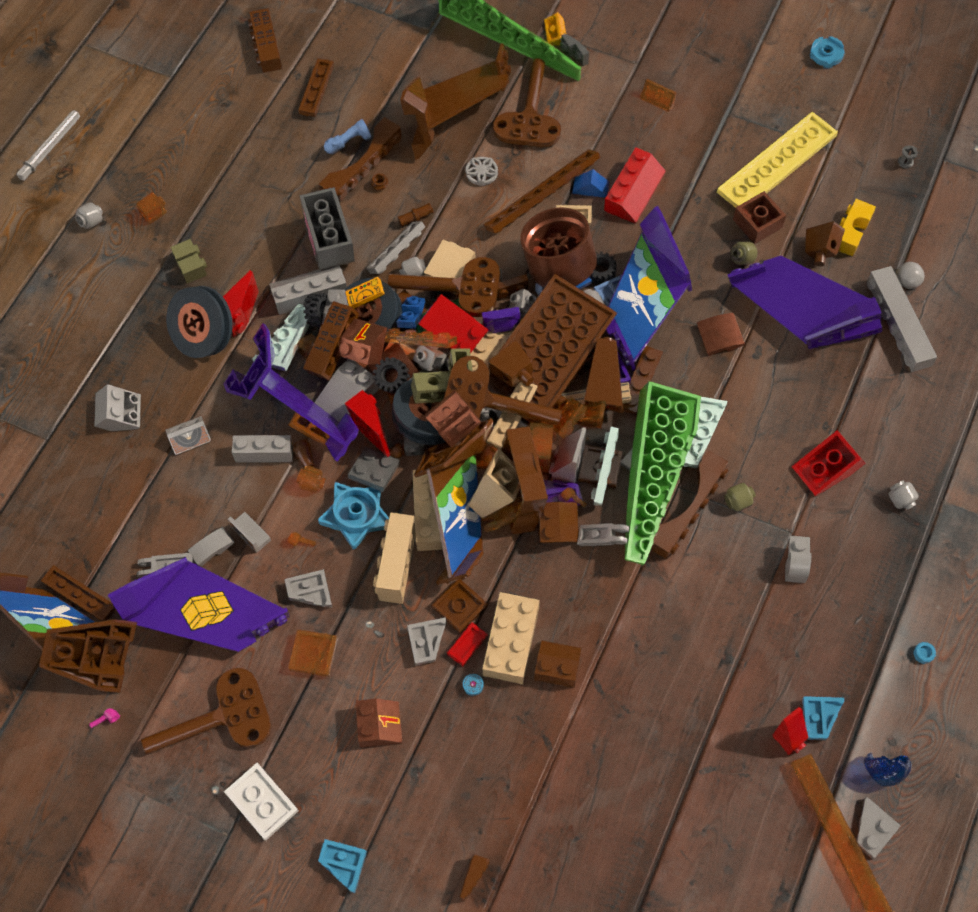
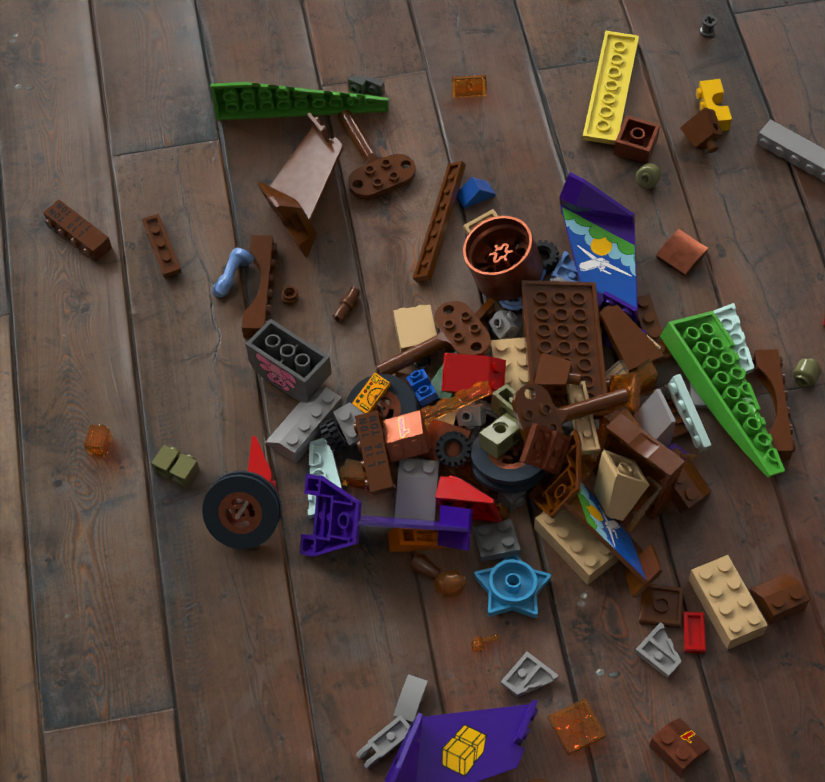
camera: 35 degrees left, 5 degrees down
(88, 215) = (43, 483): light grey head -> none
(117, 409) = (222, 637): light grey slope -> none
(188, 435) = (306, 617): panel -> none
(250, 531) = (433, 663): light grey panel -> none
(262, 448) = (386, 585): light grey brick -> none
(396, 558) = (582, 600): tan brick -> none
(399, 244) = (354, 342): light grey plate -> none
(413, 266) = (385, 350): light grey head -> none
(473, 684) = (727, 661): dark azure tile -> none
(481, 170) = (371, 234): light grey wheel -> none
(501, 320) = (507, 345): dark purple slope -> none
(554, 29) = (332, 78): light orange slope -> none
(601, 534) = (729, 471): light grey hinge -> none
(634, 186) = (513, 173): red slope -> none
(807, 302) = (734, 184): dark purple piece -> none
(910, 275) = (787, 117): light grey hair -> none

